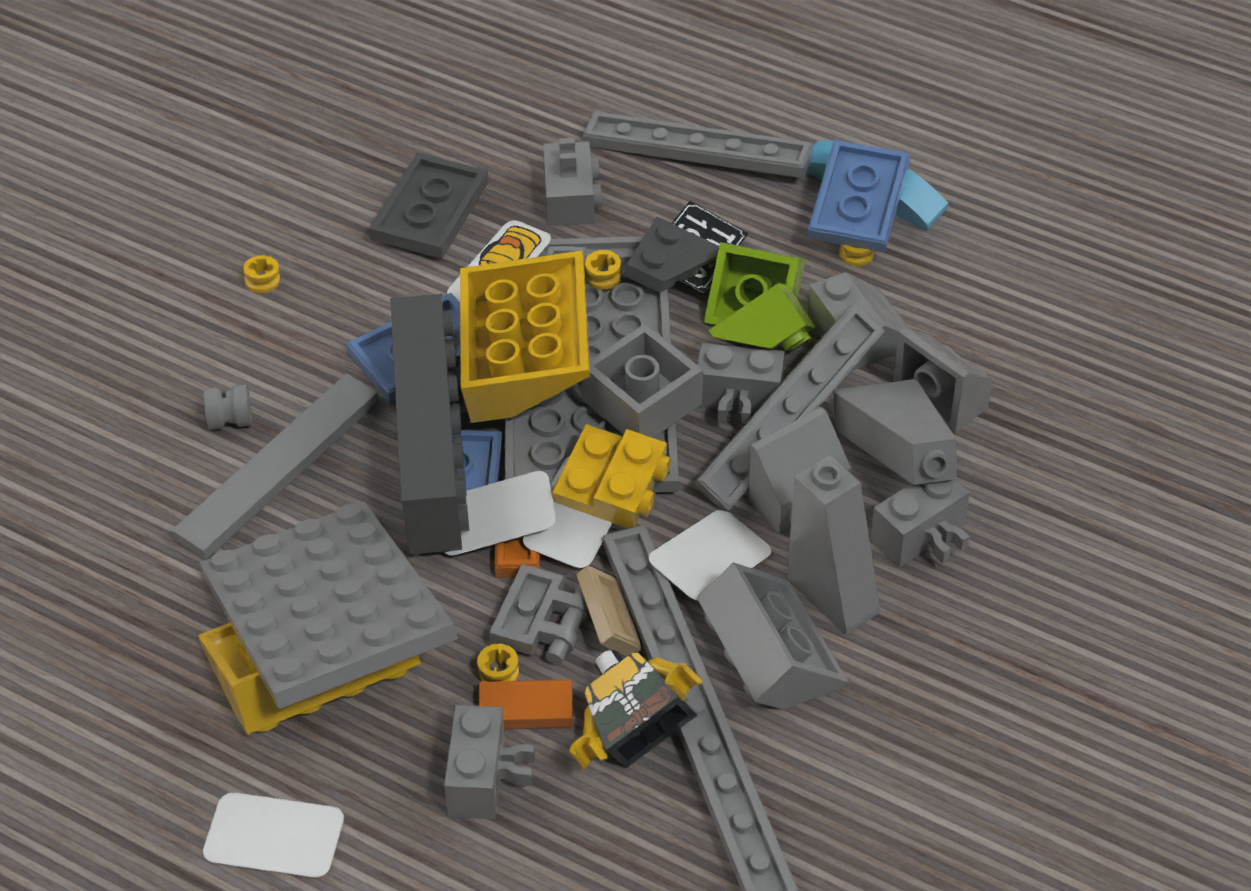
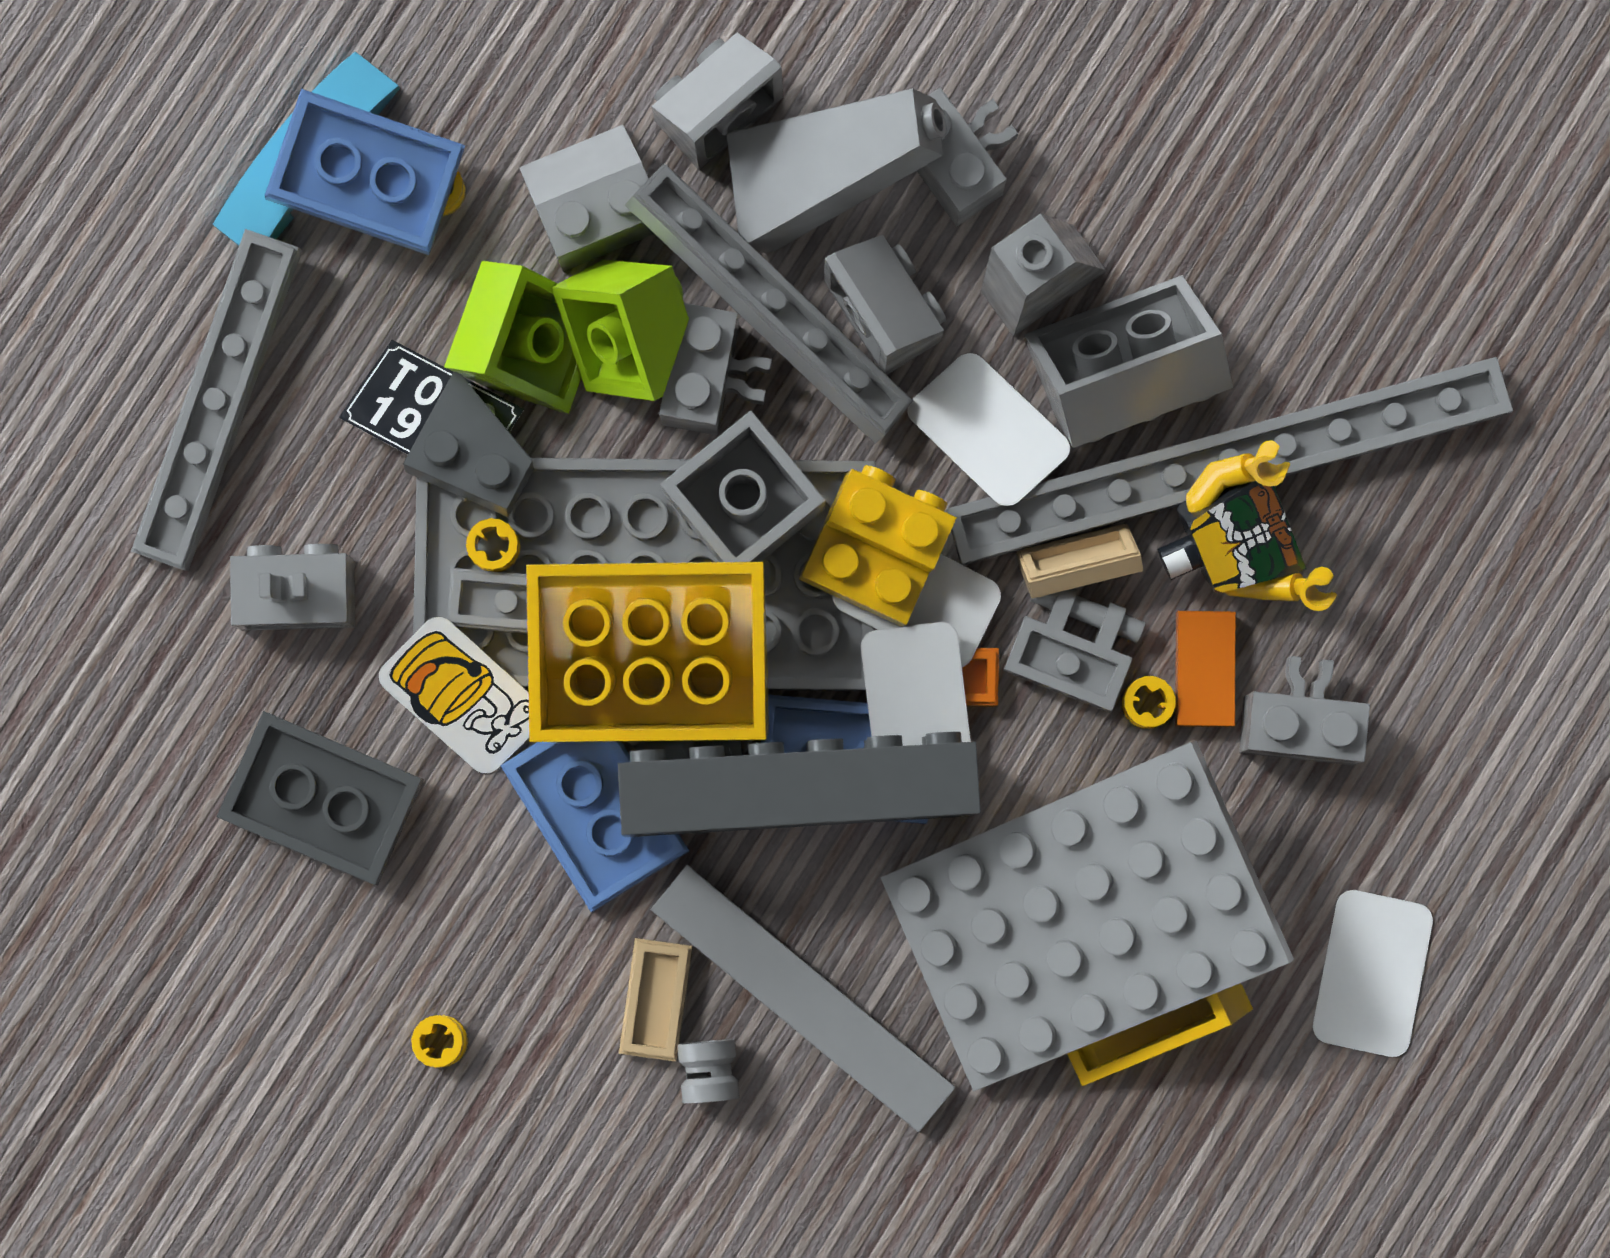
camera: 85 degrees left, 35 degrees up
(284, 383) = (655, 999): none -> tan tile

